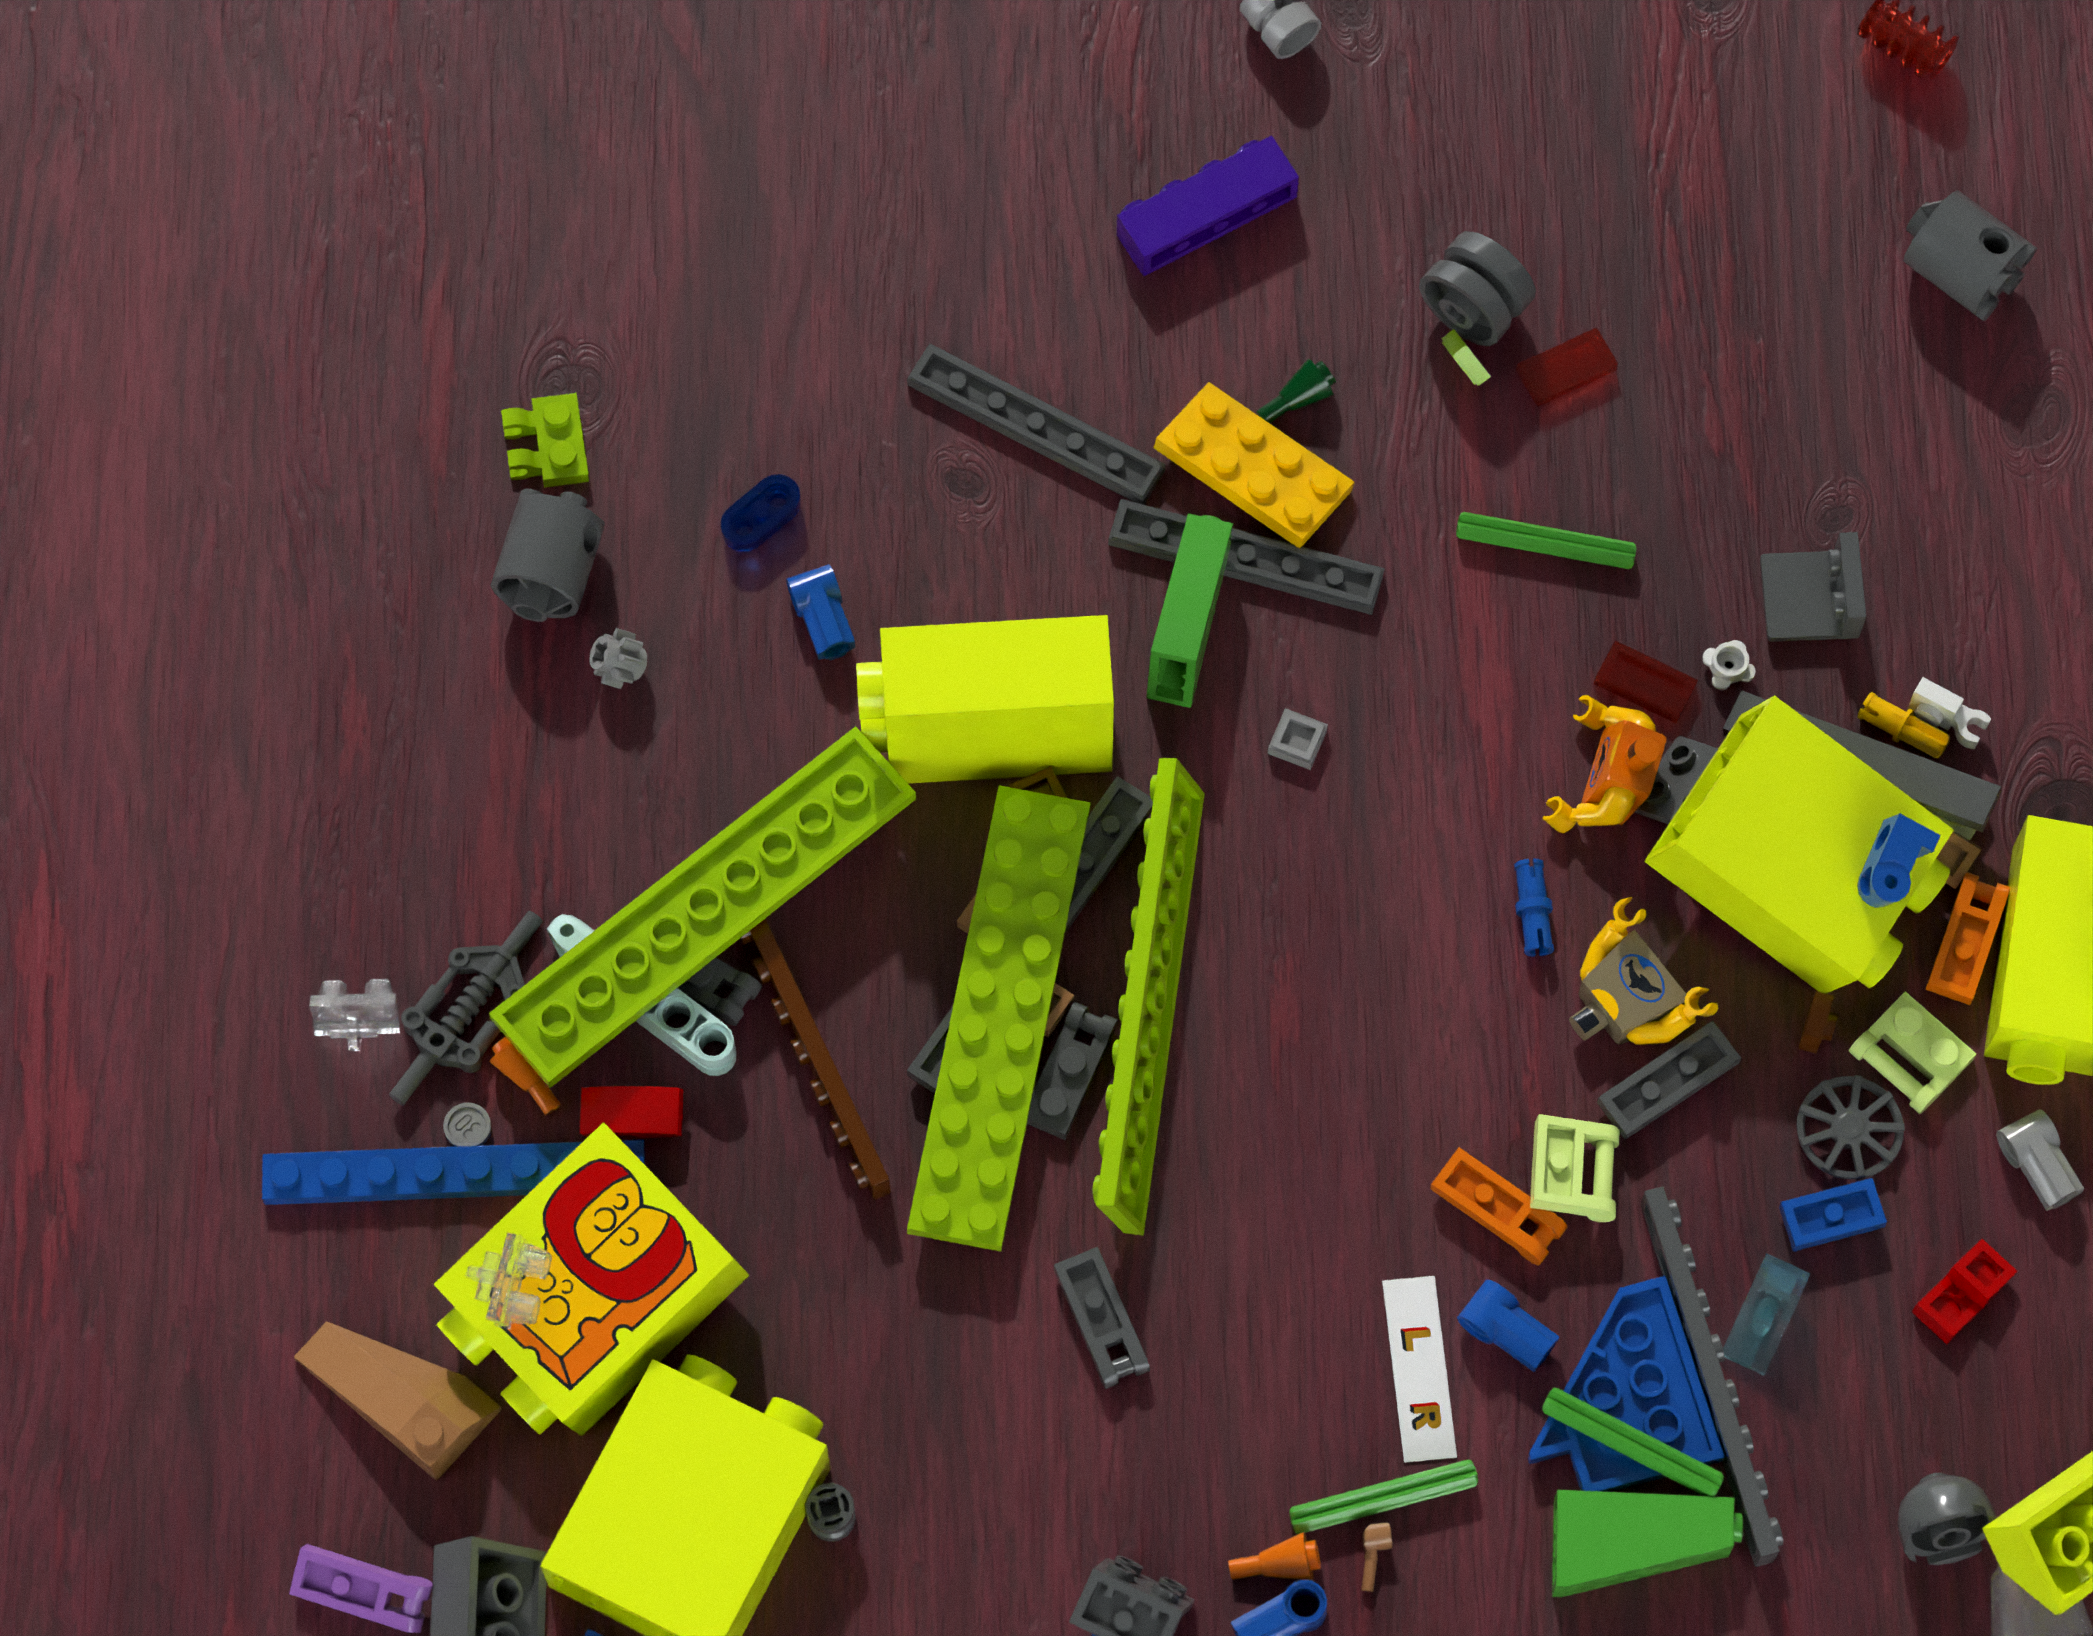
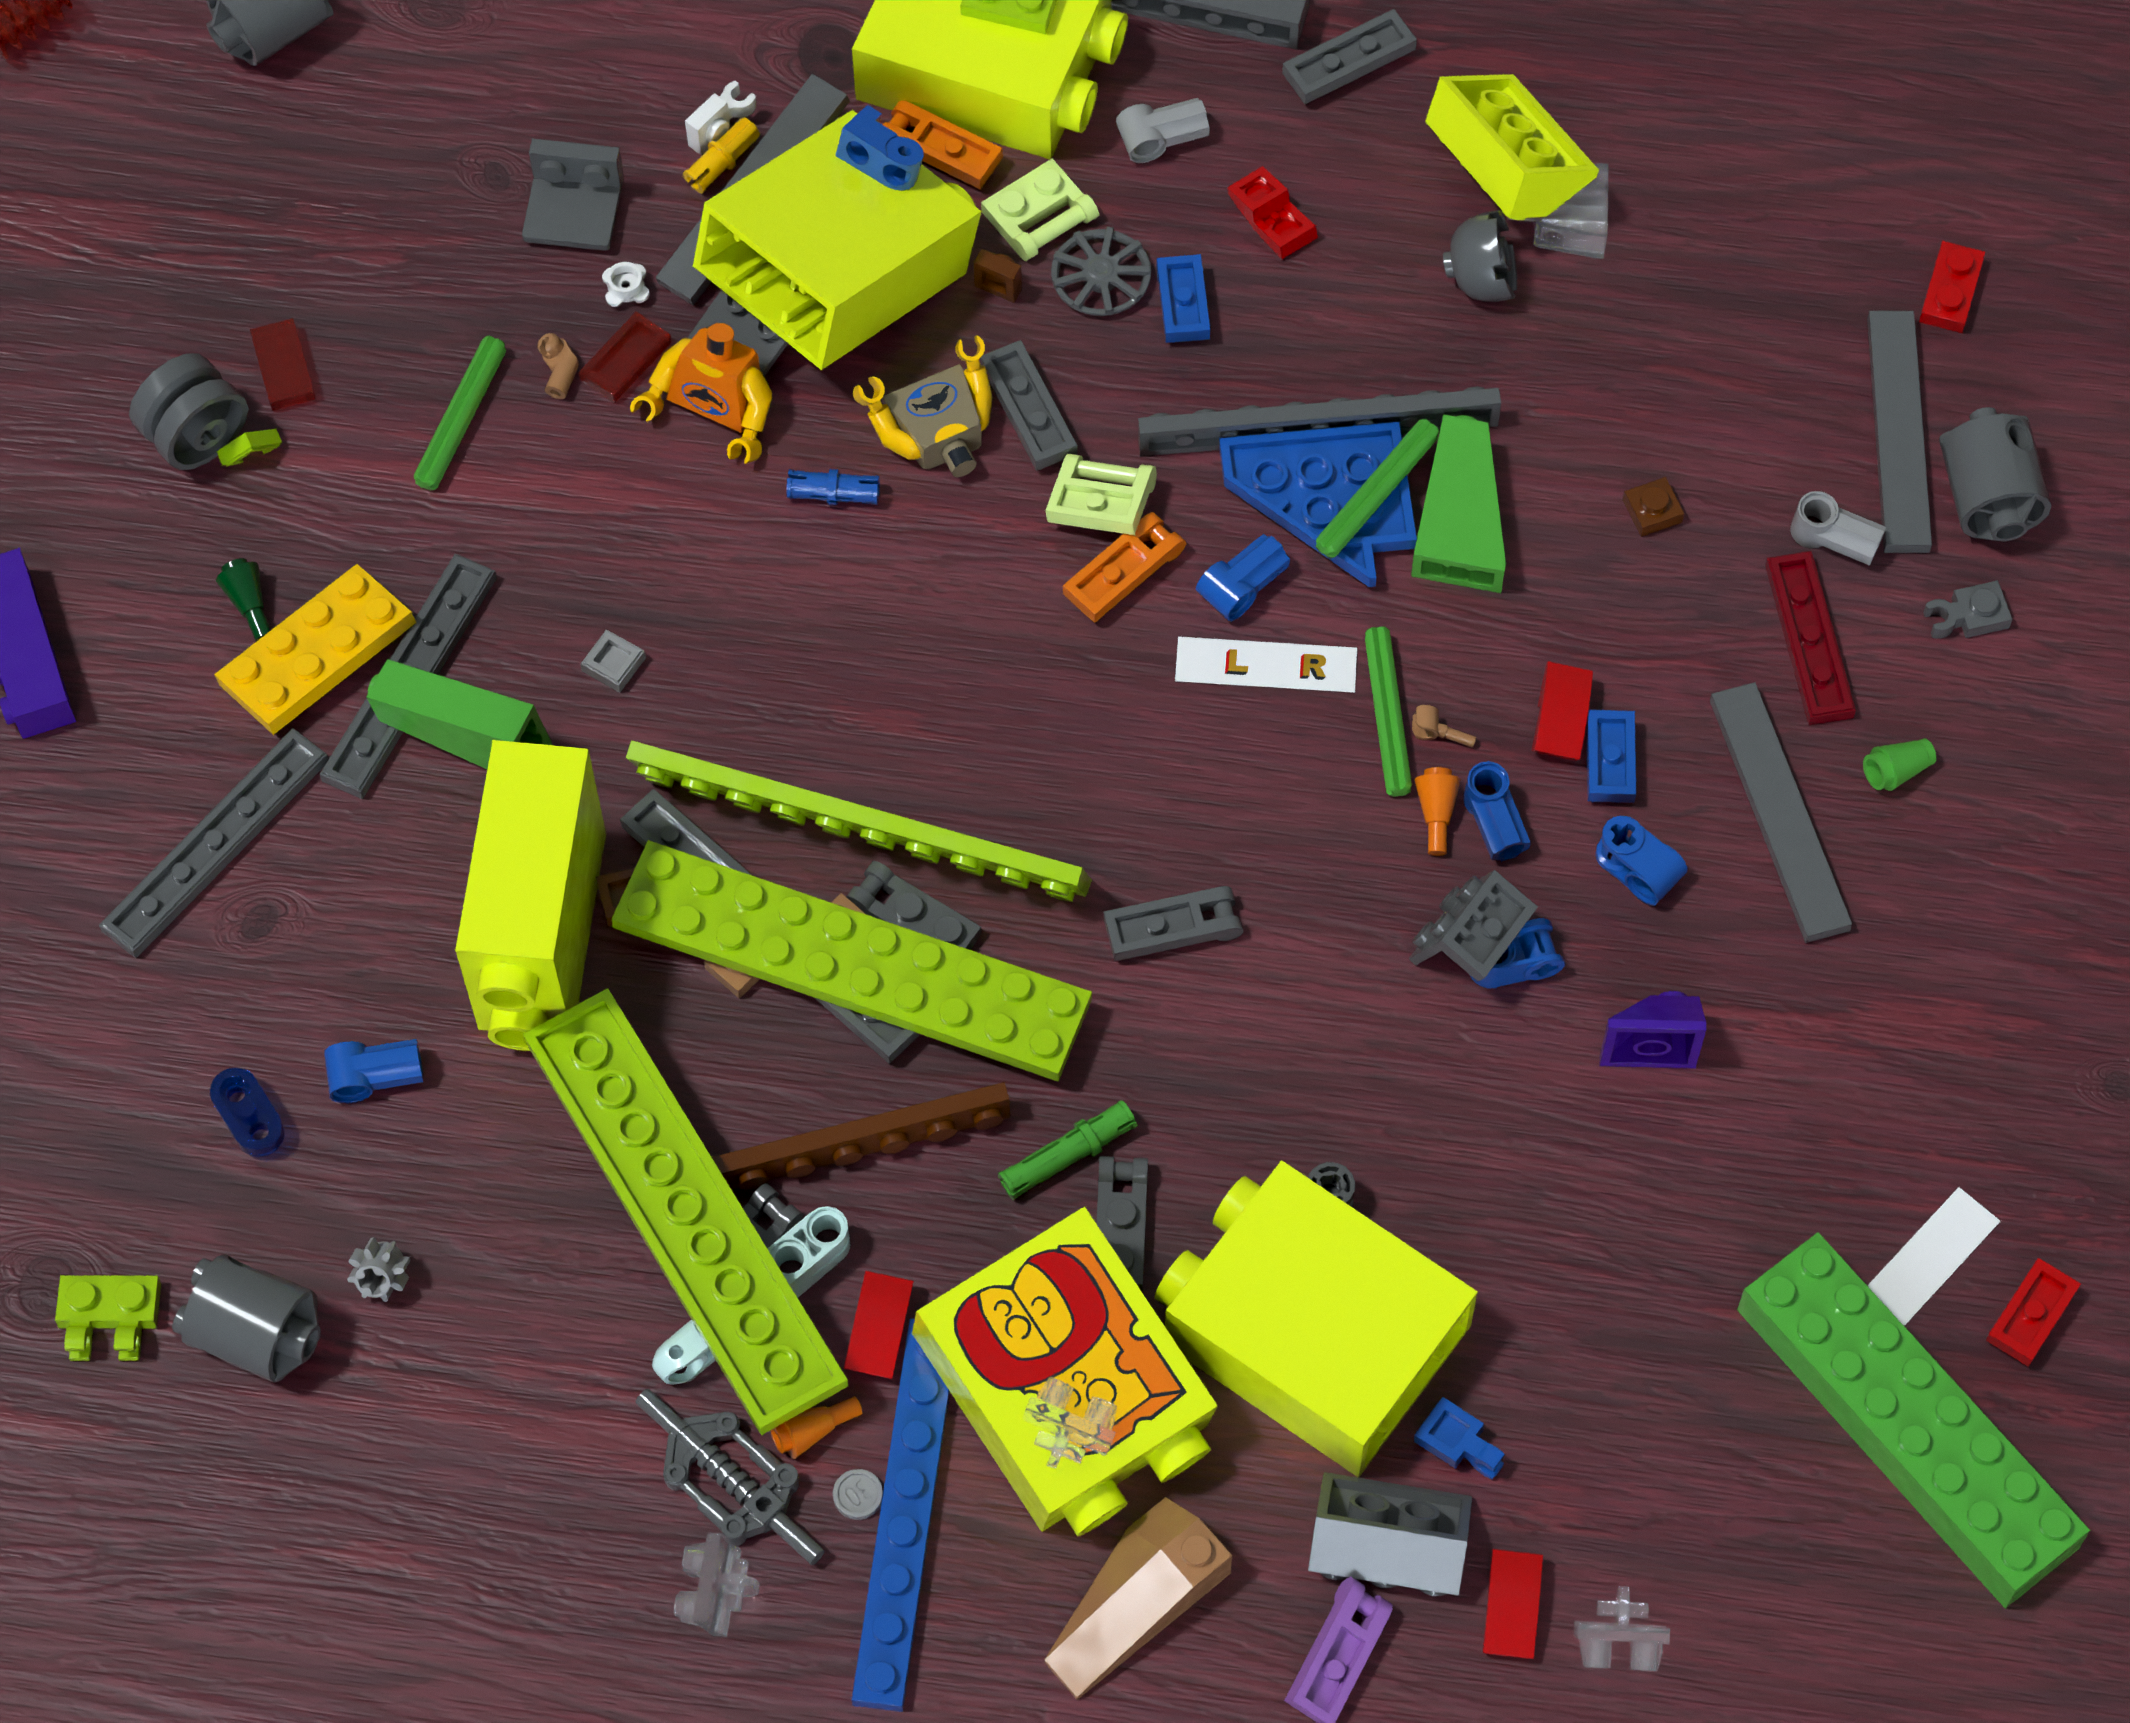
camera: 80 degrees left, 5 degrees down
(774, 1321) = (1123, 1214): none -> dark grey plate
(852, 1269) = (1085, 1139): none -> bright green pin
(1624, 623) = (561, 362): none -> medium nougat arm
(1765, 1314) = (1267, 363): clear light blue slope -> none

